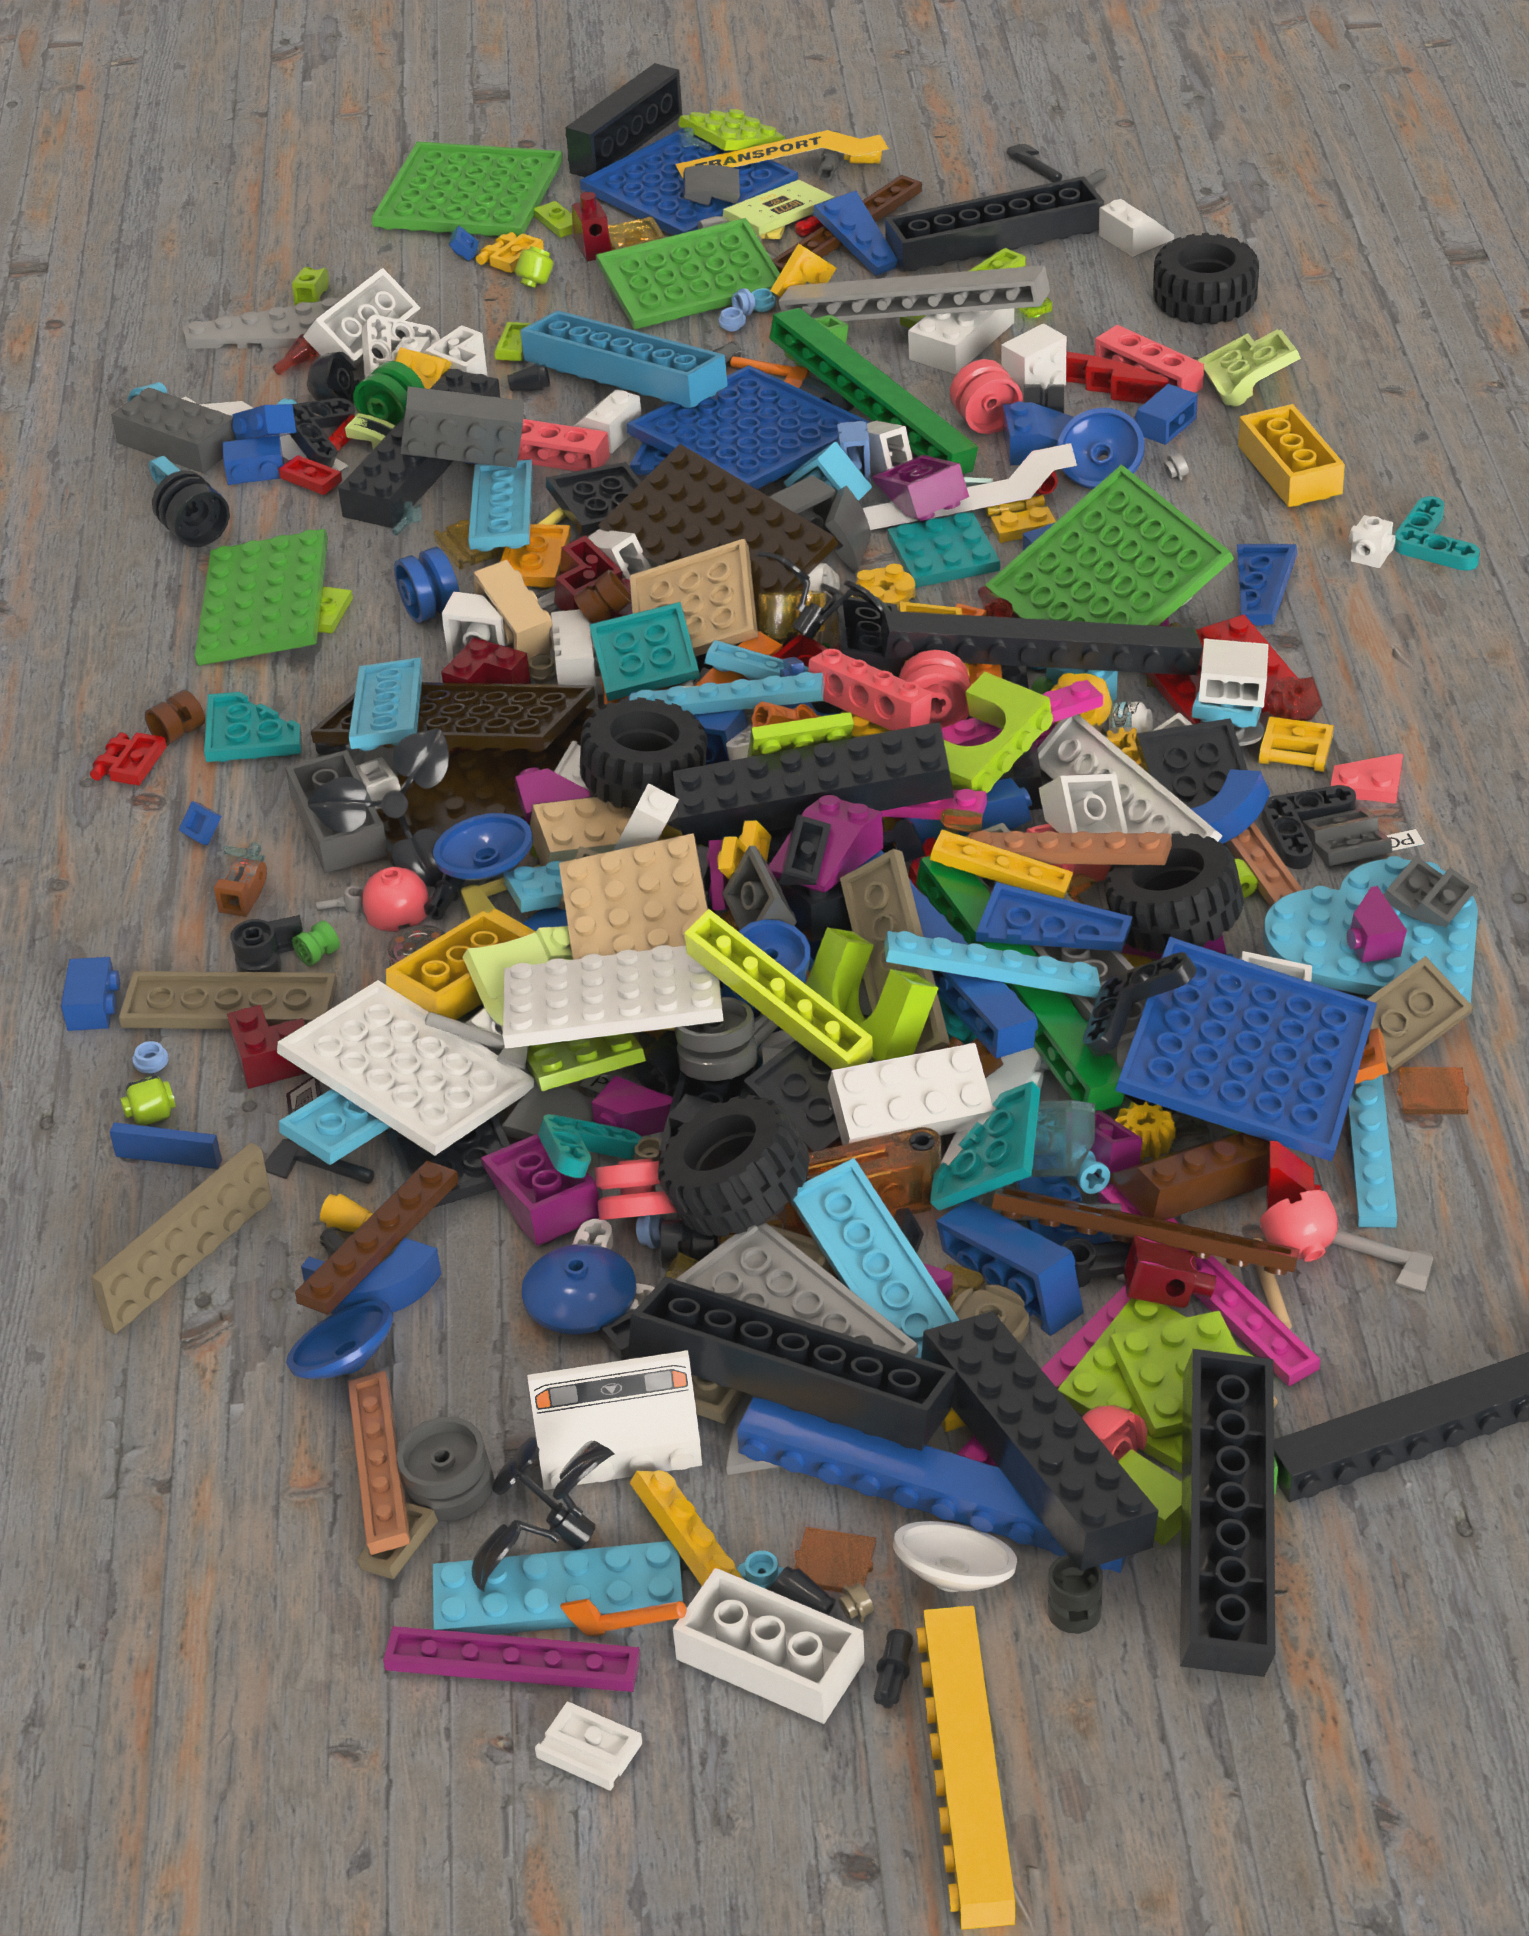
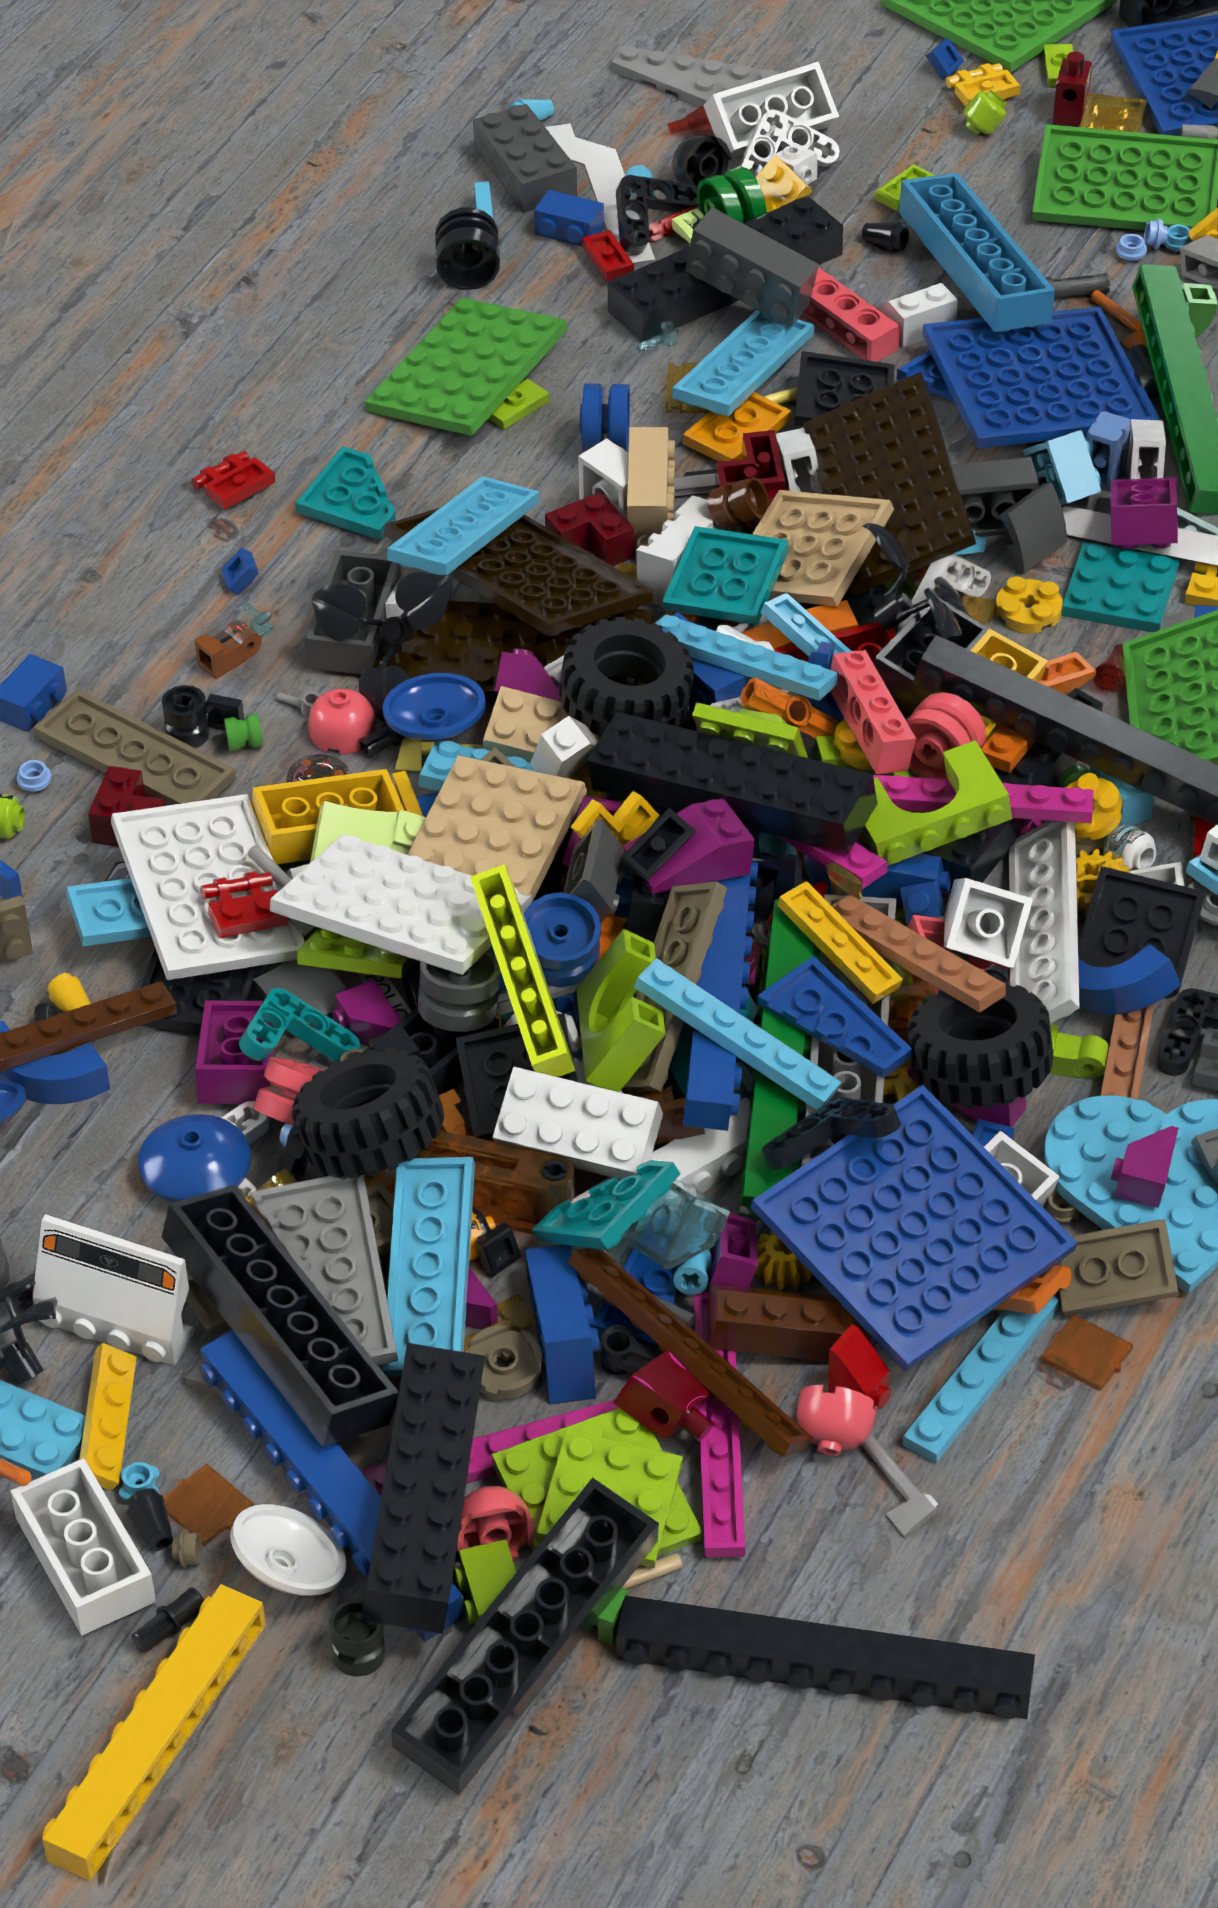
camera: 30 degrees right, 5 degrees up
(175, 717) = (285, 456): reddish brown wheel -> none
(264, 422) = (596, 185): blue brick -> none
(288, 1152) = (63, 924): black piece -> none
(310, 285) = (766, 48): lime leg -> none
(462, 1071) = (242, 913): none -> red plate
(463, 349) = (835, 183): white brick -> none
(779, 611) = (878, 580): clear yellow brick -> none
(1022, 815) = (922, 900): none -> blue plate
(1273, 1294) = (765, 1471): tan bar -> none

